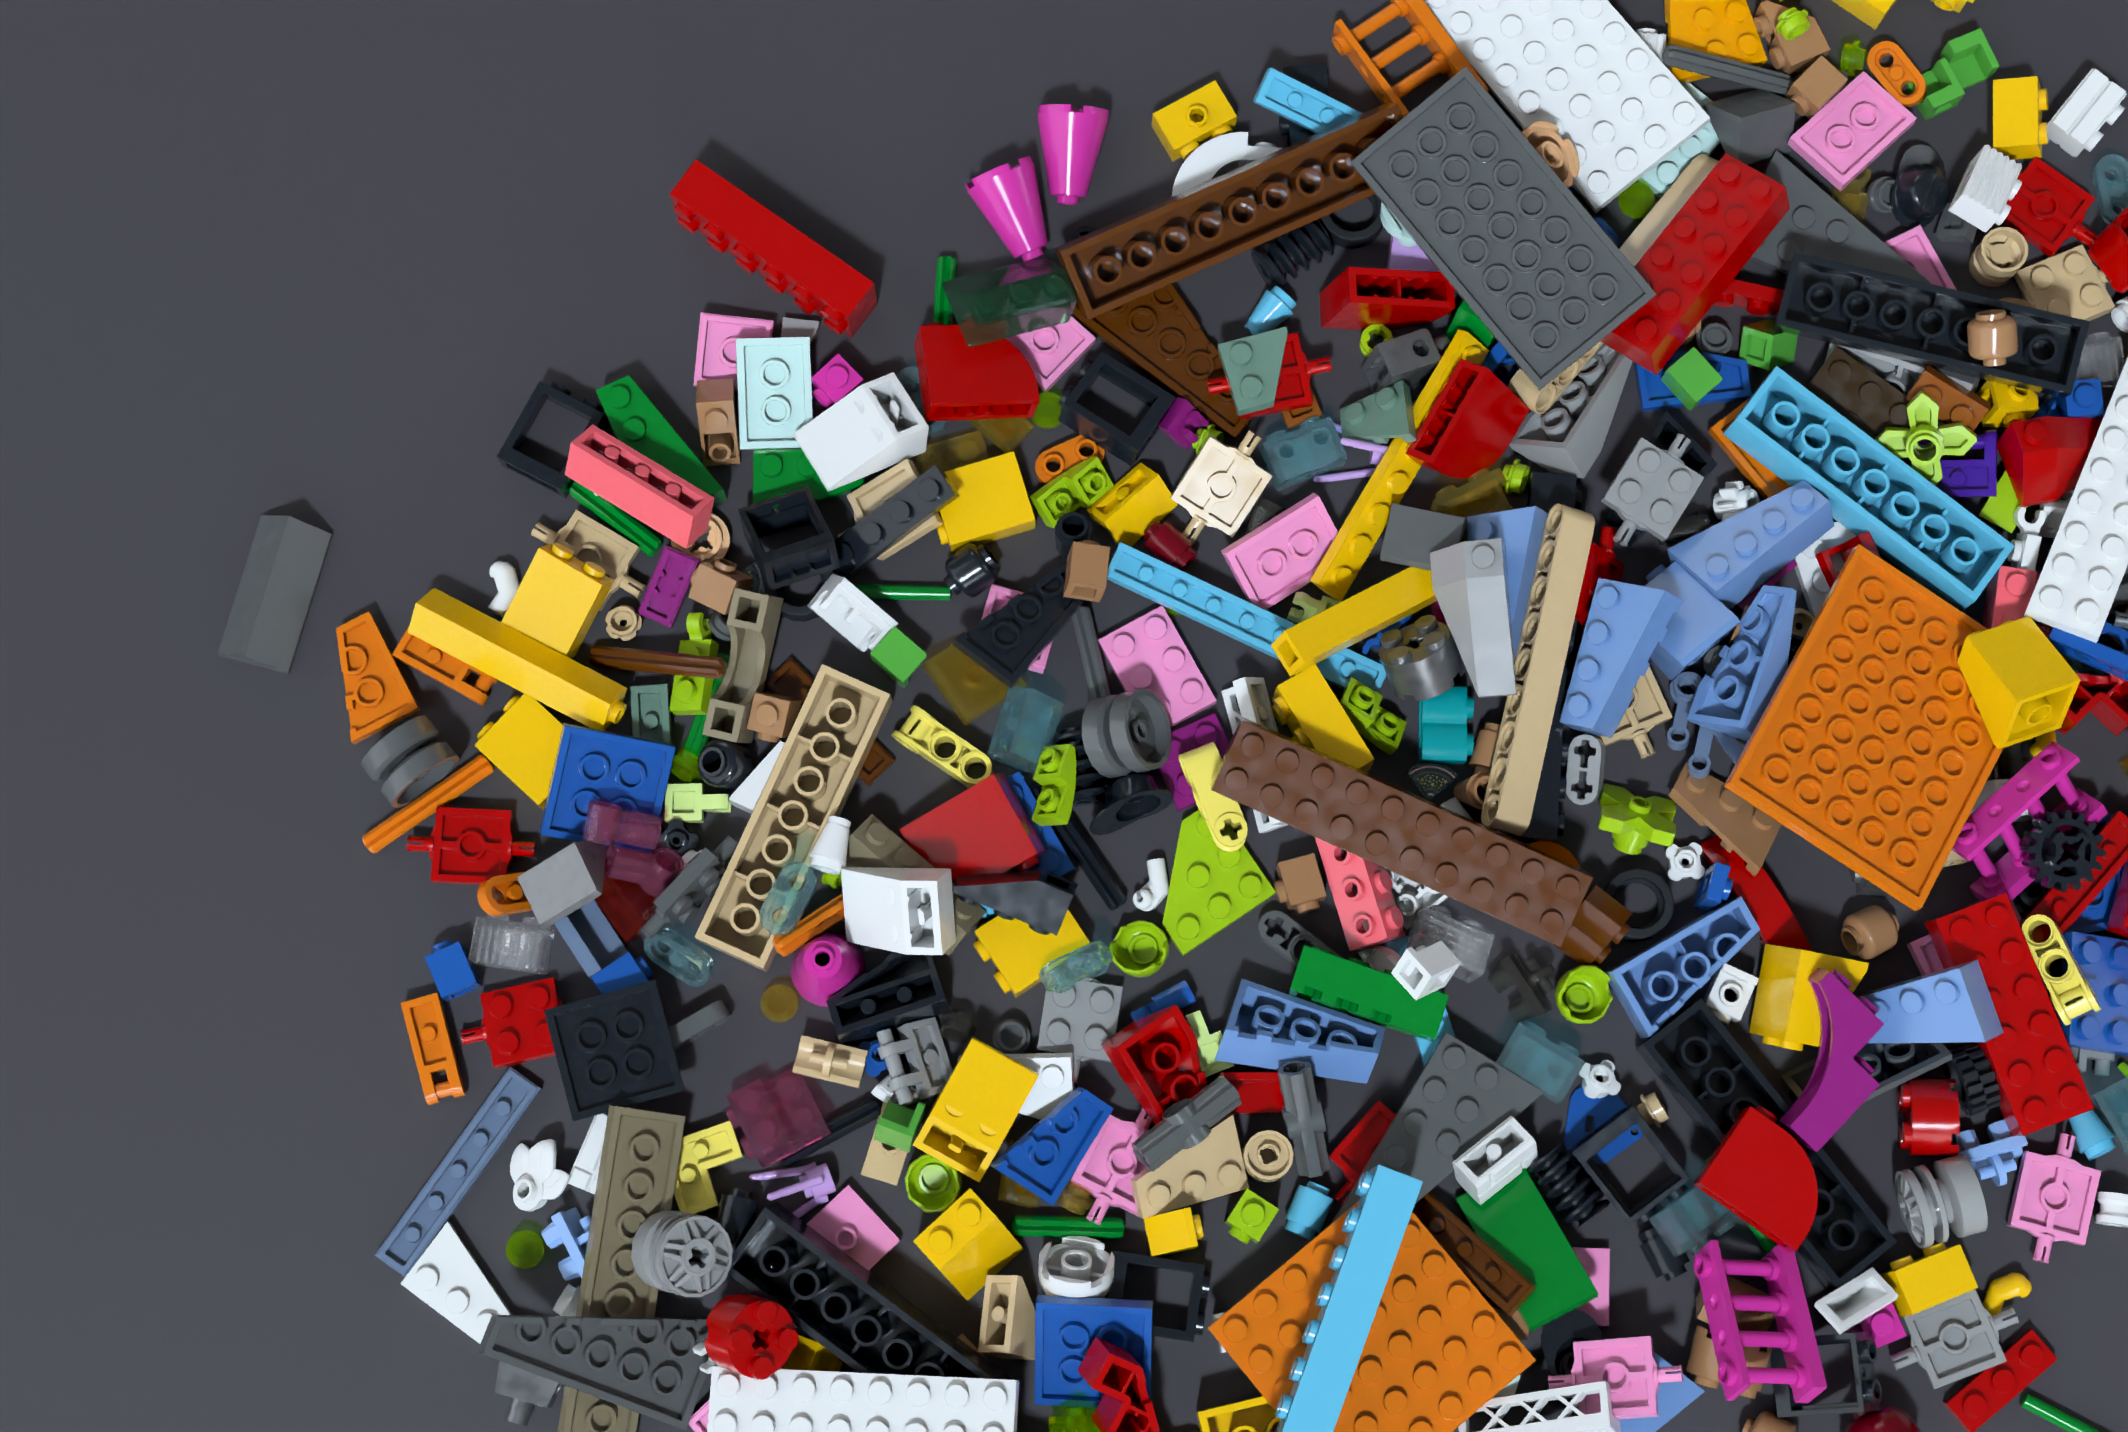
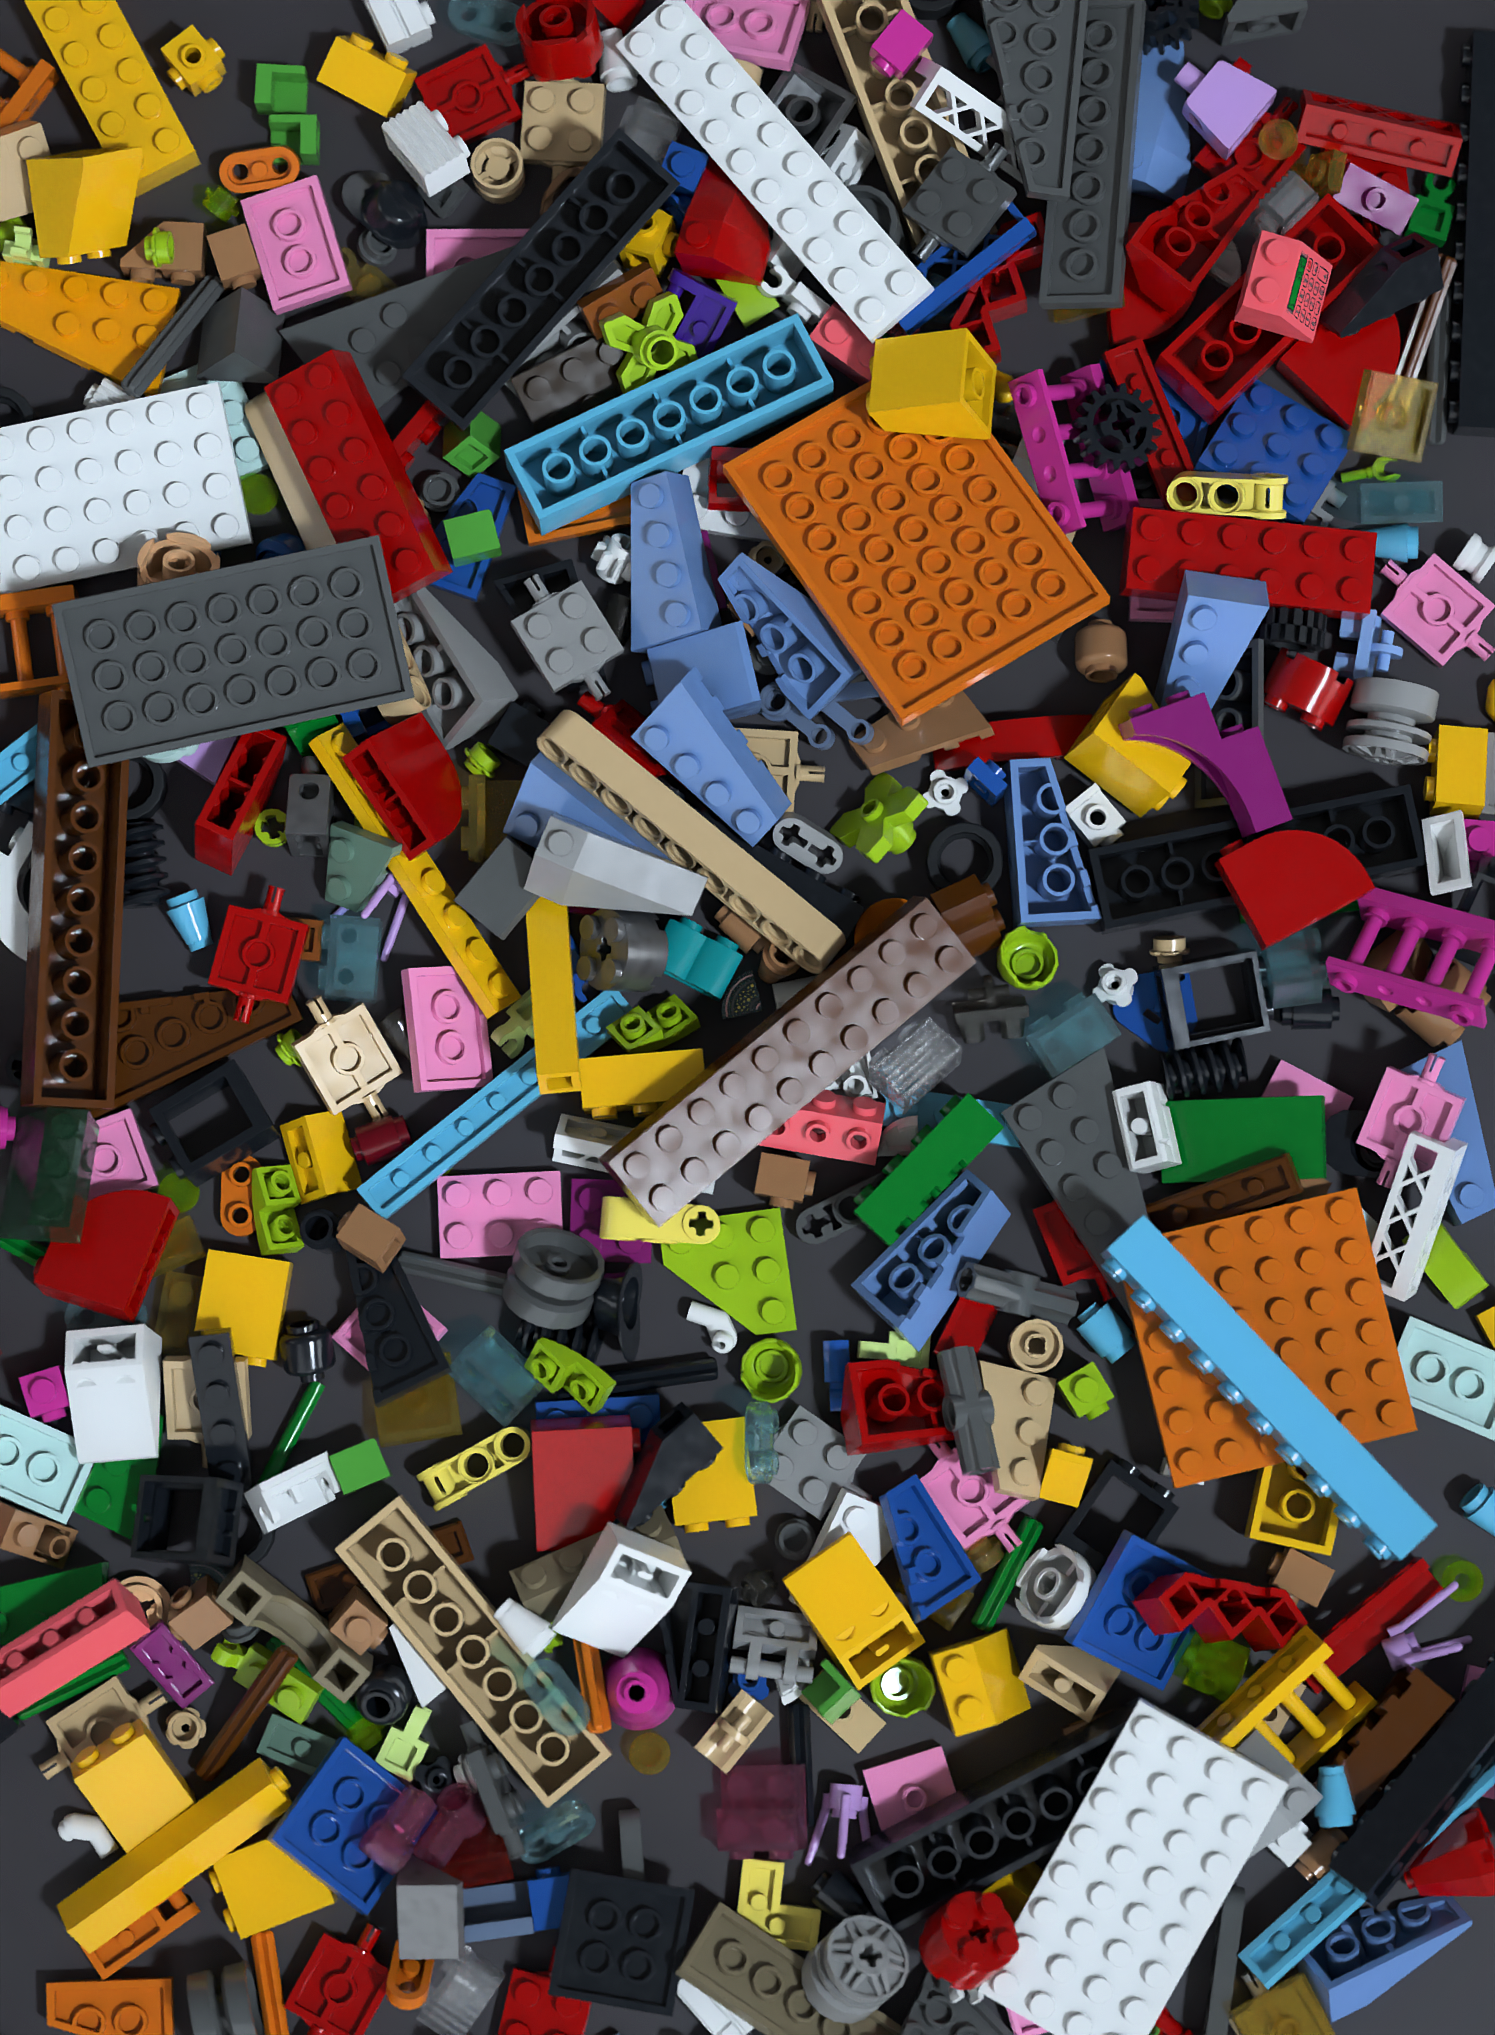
camera: 65 degrees left, 5 degrees up
(1182, 423) = (262, 1064): magenta tile -> none
(1253, 369) = (246, 967): sand green wing -> none
(1425, 969) = (933, 1103): white brick -> none
(1992, 337) = (588, 231): medium nougat head -> none

